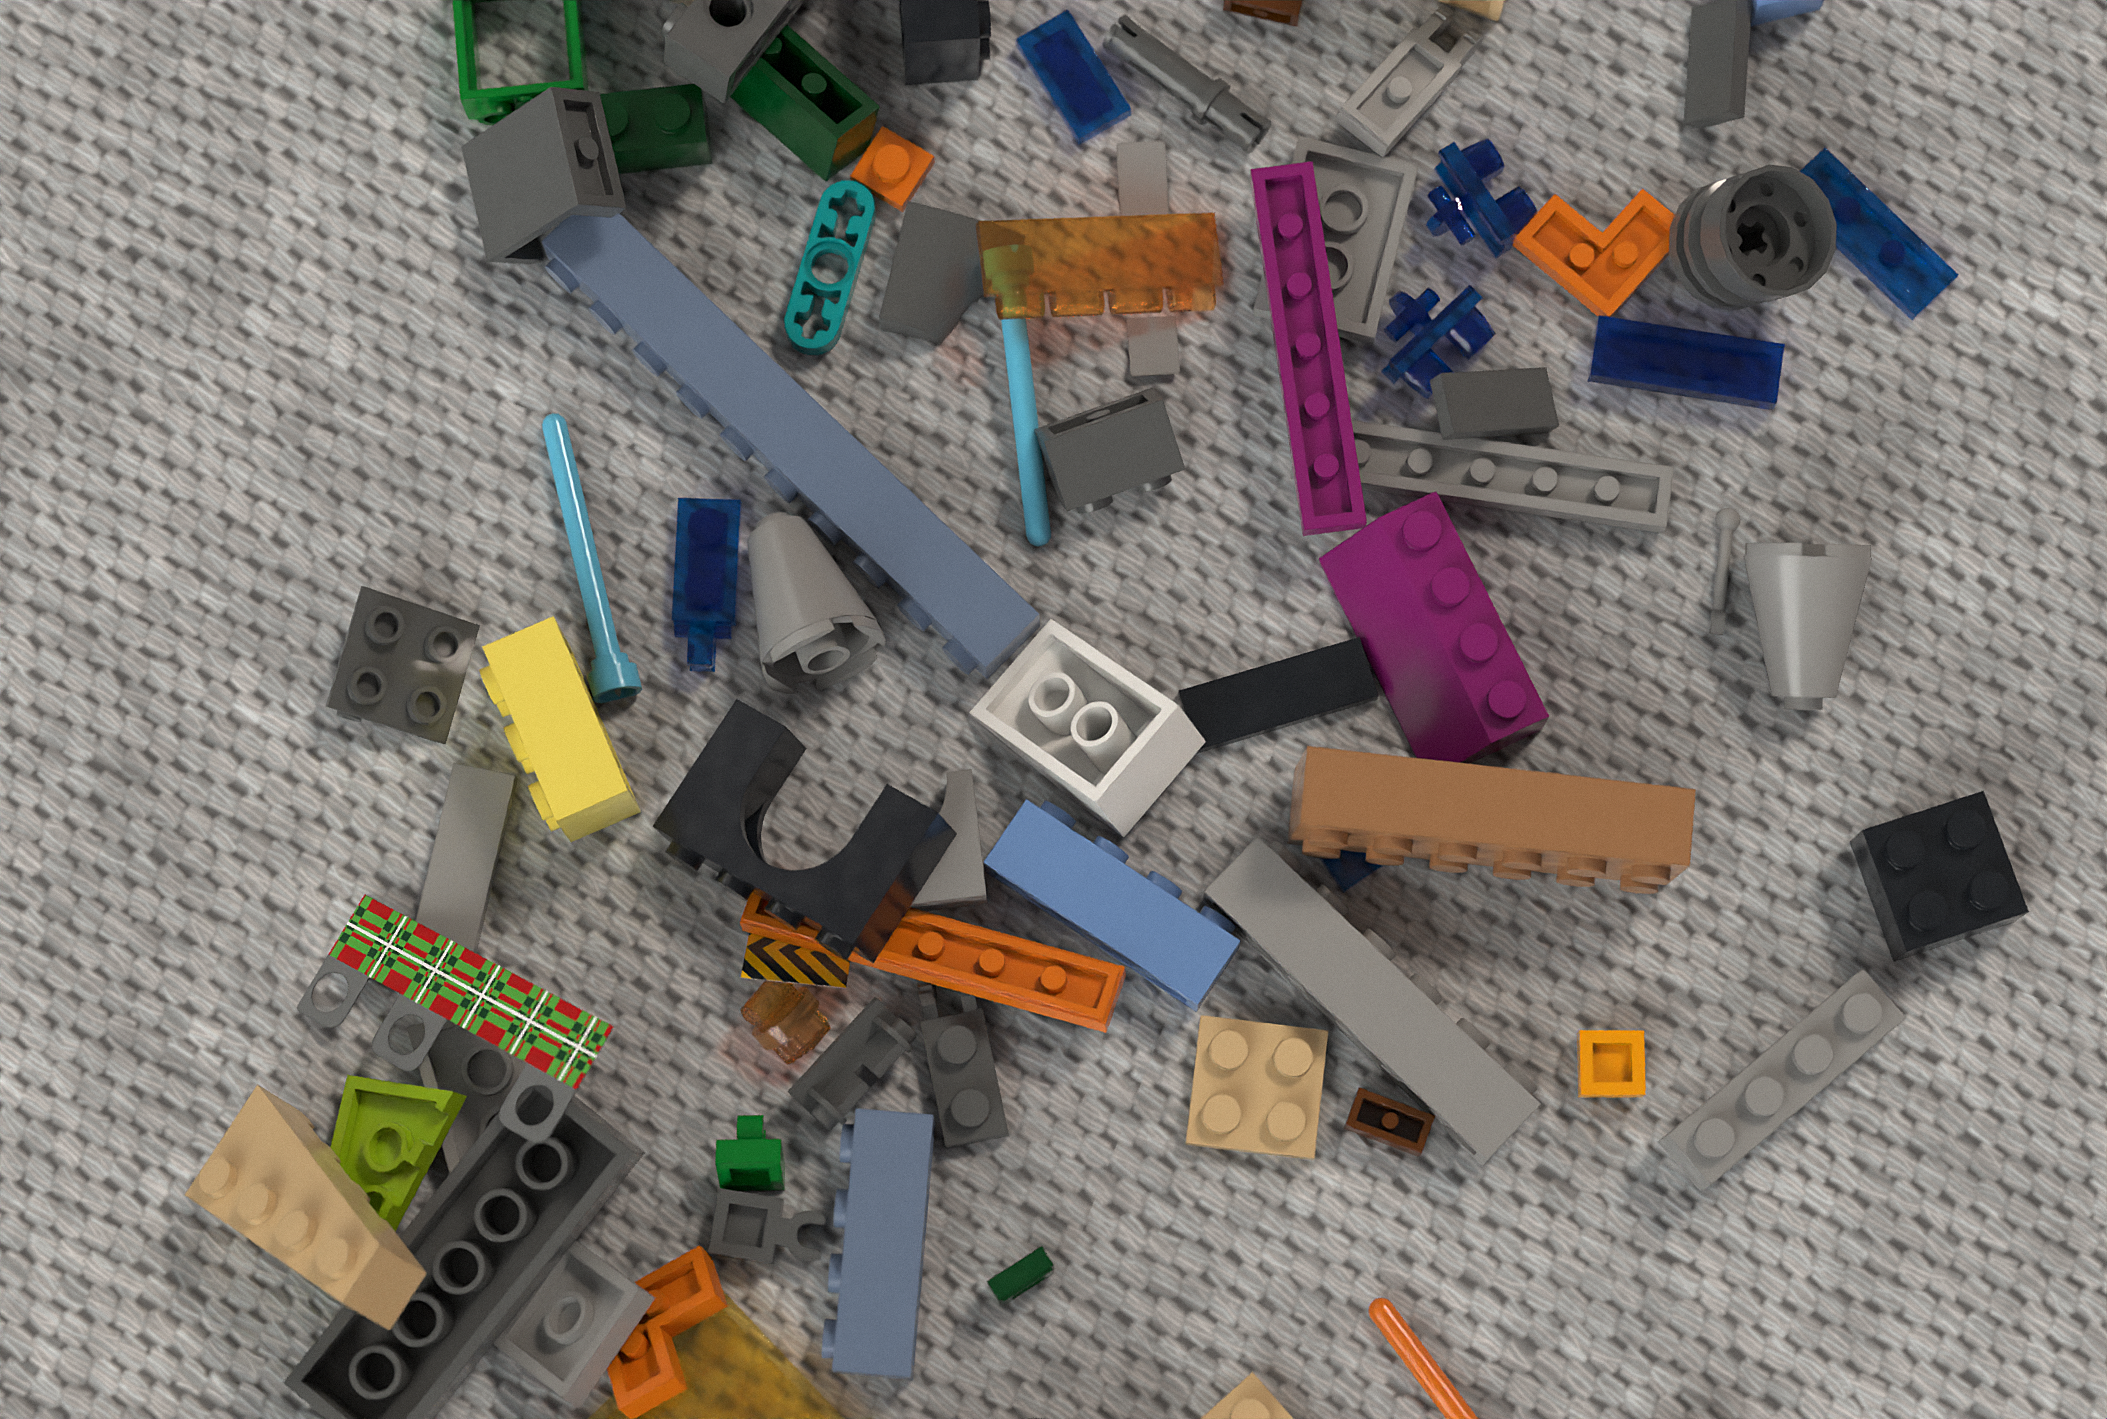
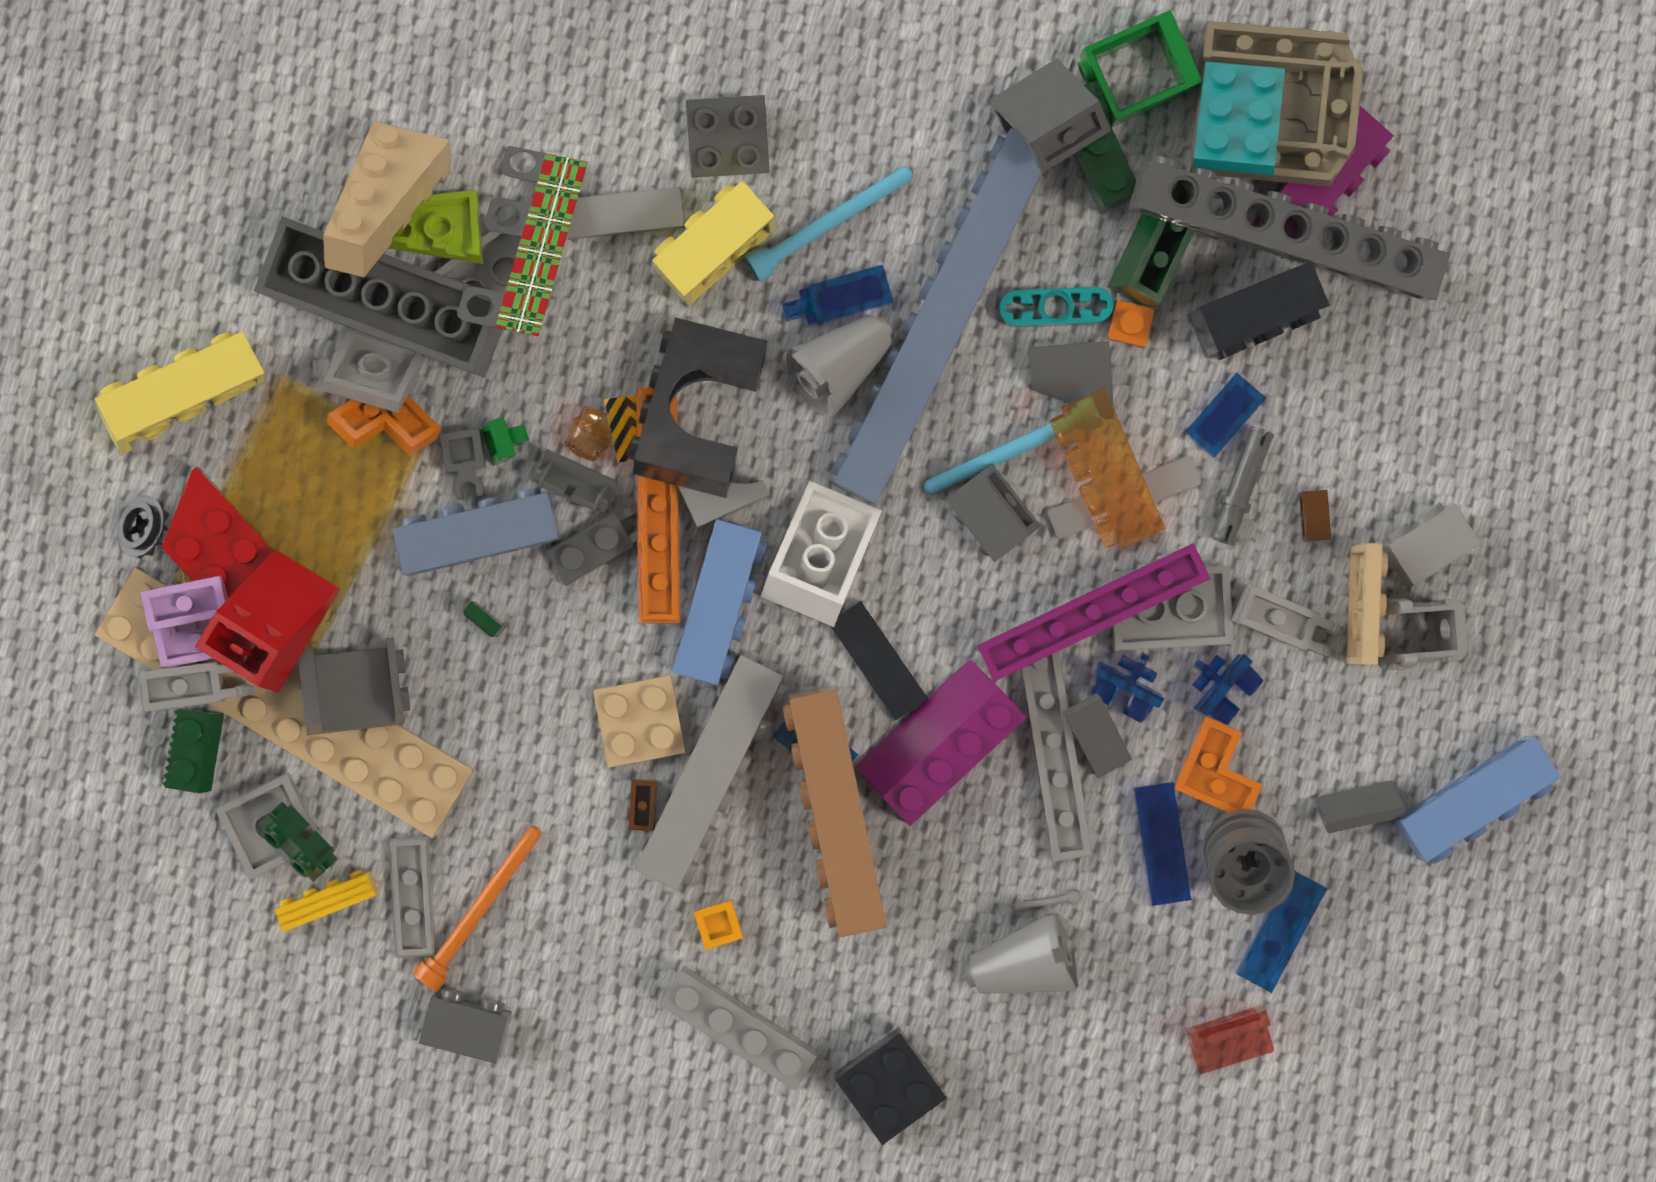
camera: 70 degrees right, 10 degrees up
(2010, 355) = (1230, 1039): none -> clear red panel

